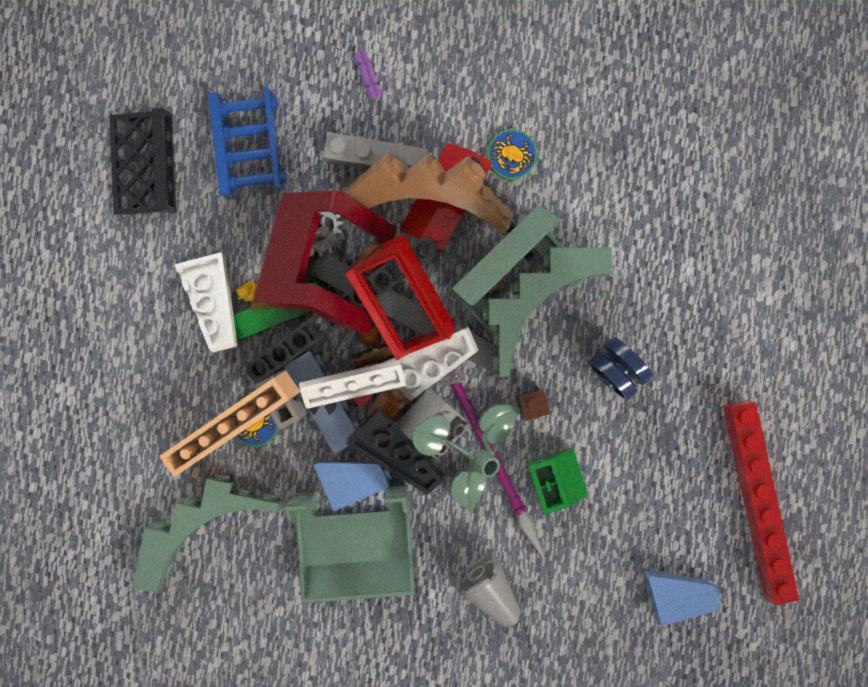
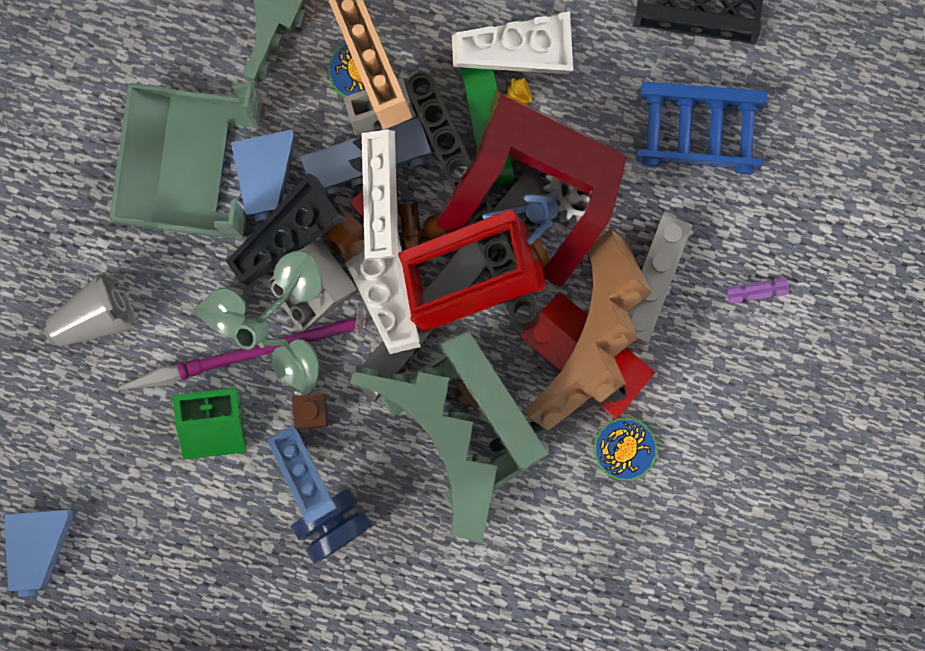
camera: 110 degrees right, 5 degrees down
(340, 254) = (539, 210): none -> medium blue plant
(588, 400) = (301, 474): none -> medium blue plate

